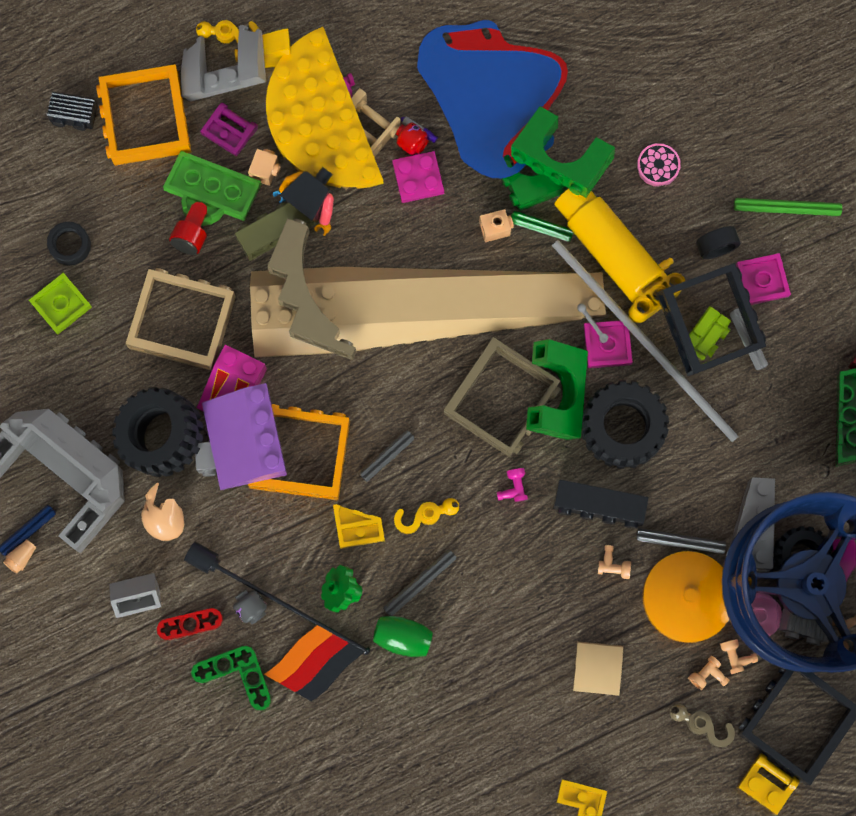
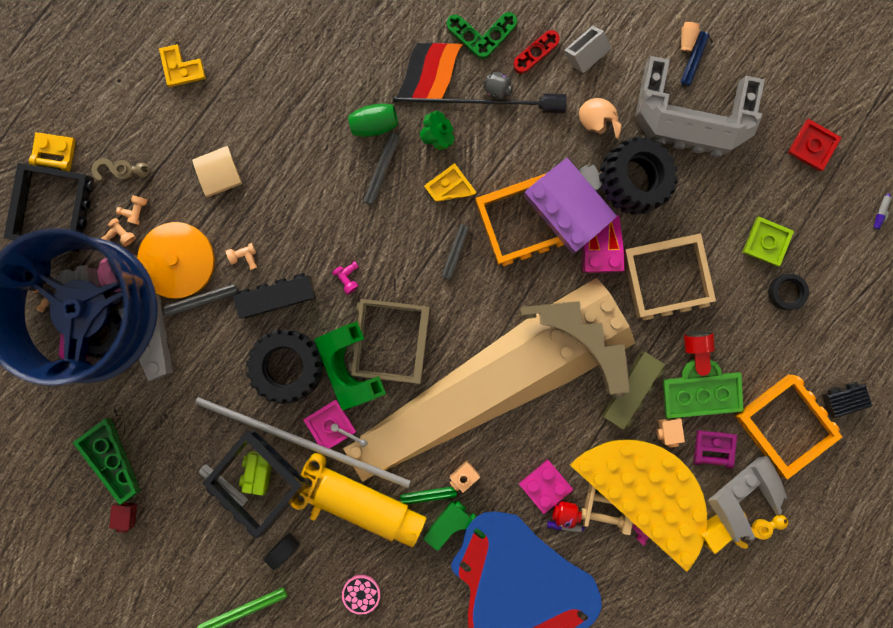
camera: 155 degrees right, 10 degrees up
(309, 196) = (622, 422): black torso -> none
(427, 514) = (402, 222): yellow piece -> none
(578, 175) = (417, 546): green arch -> none
(764, 278) = (232, 542): dark pink plate -> none

